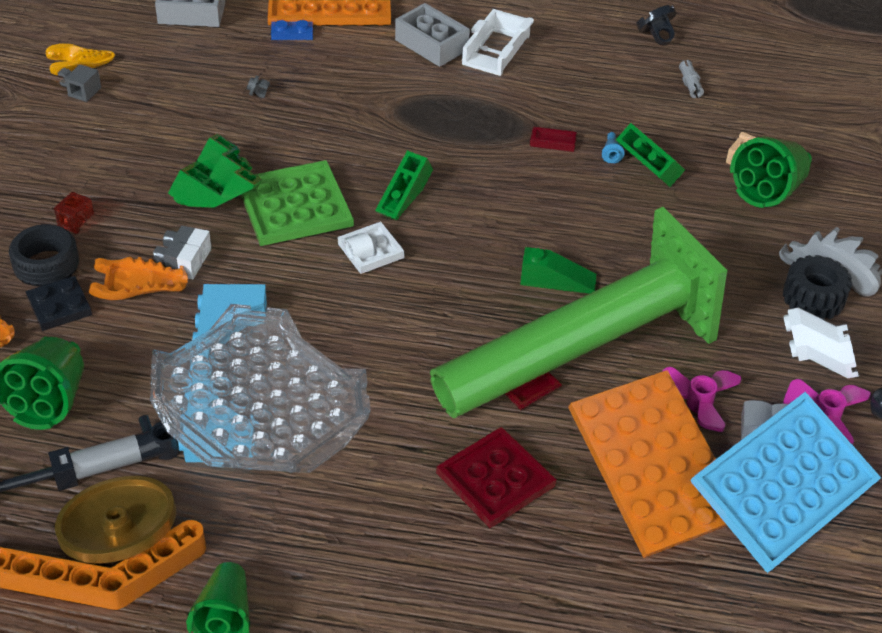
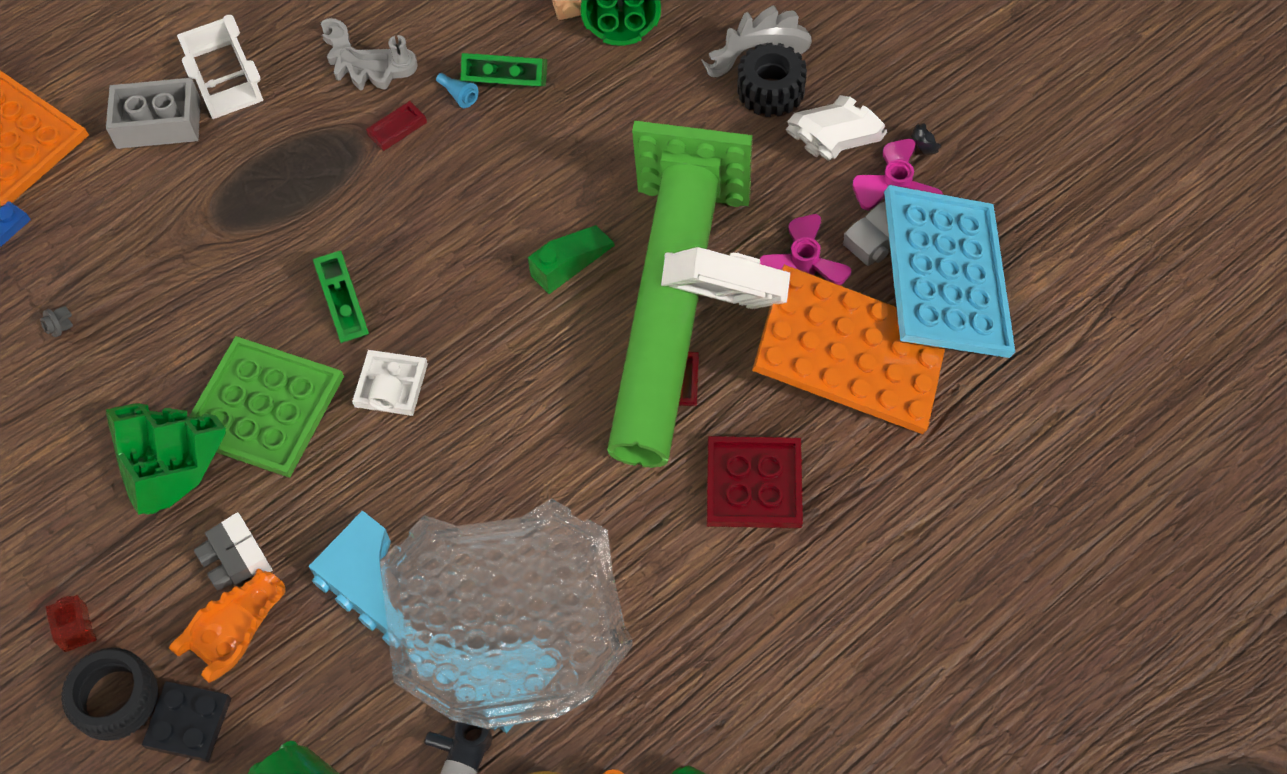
camera: 45 degrees left, 15 degrees up
(581, 101) = (374, 64): none -> light grey animal
(613, 337) = (726, 277): none -> white piece

